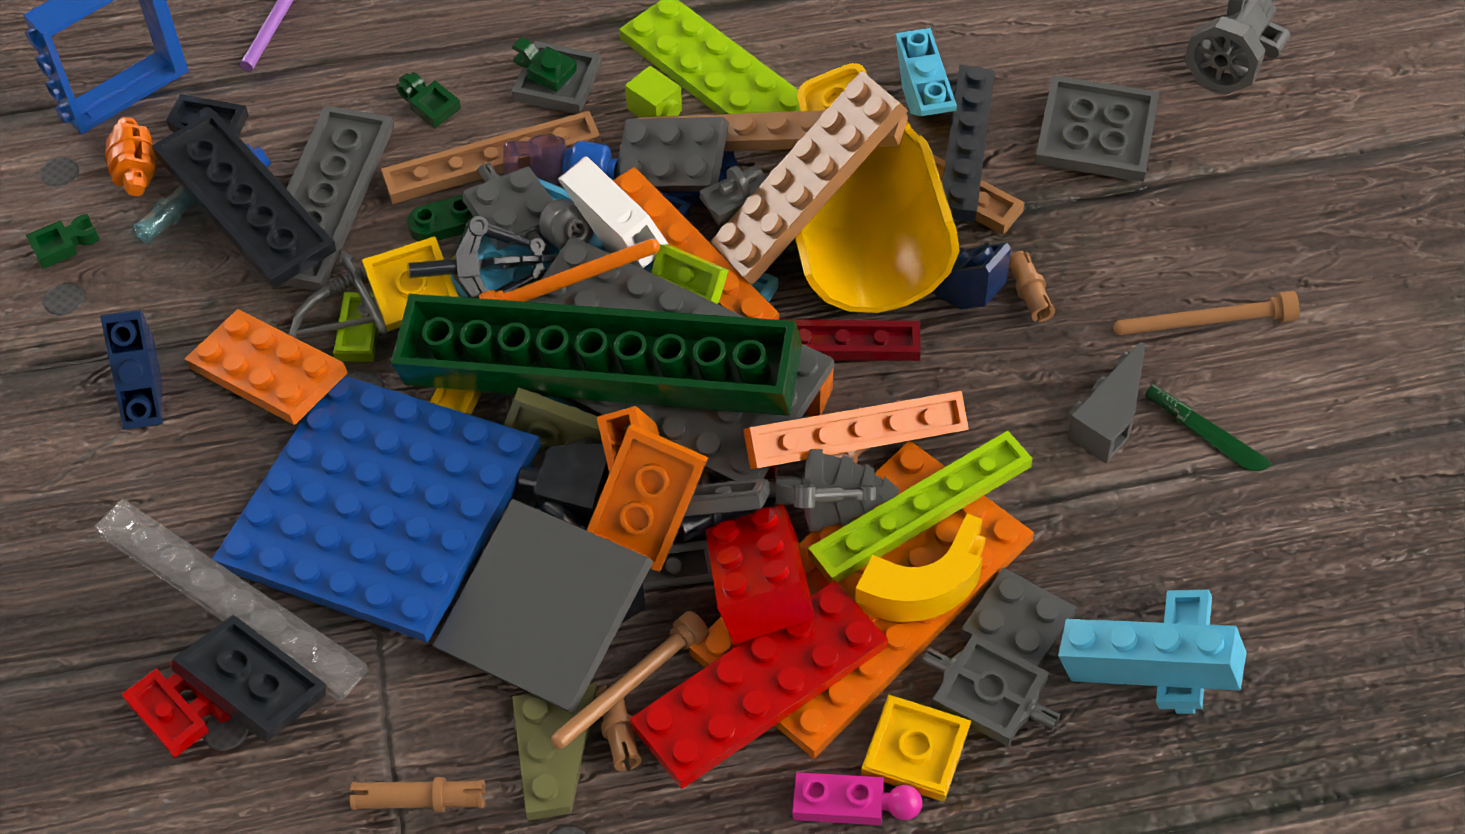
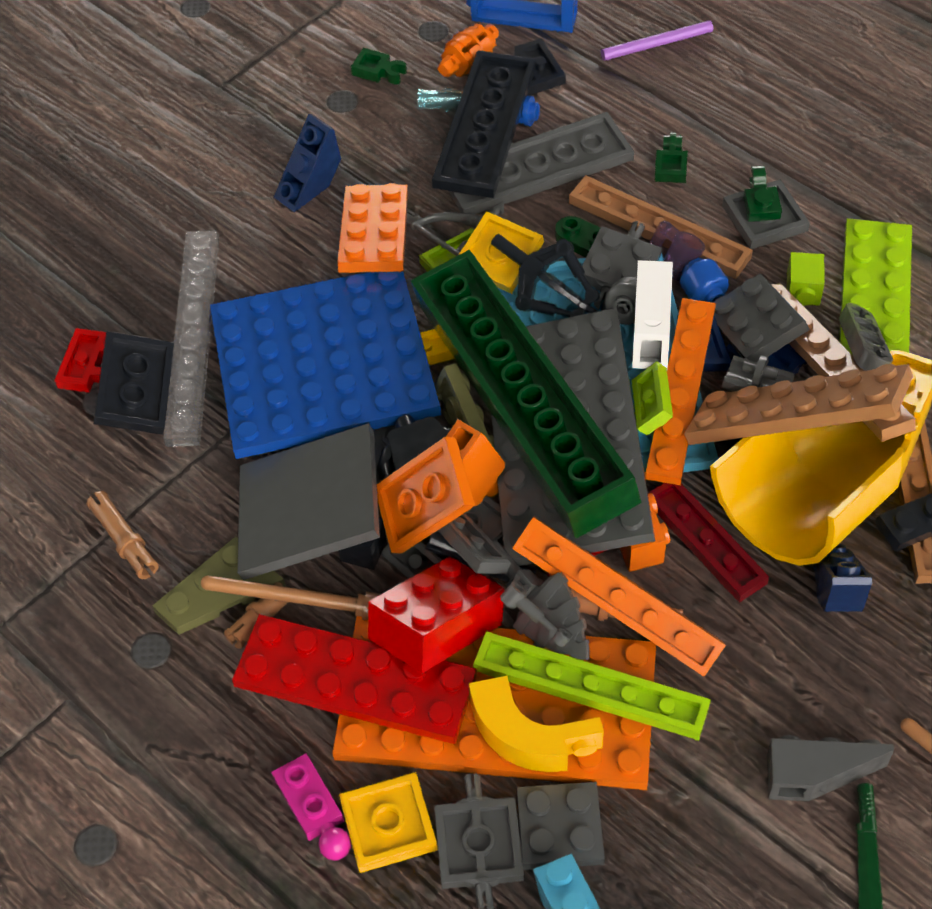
camera: 55 degrees right, 0 degrees up
(577, 273) = (526, 309): orange piece -> none
(775, 94) = (864, 337): none -> dark grey beam
(1031, 286) = (881, 633): medium nougat pin -> none

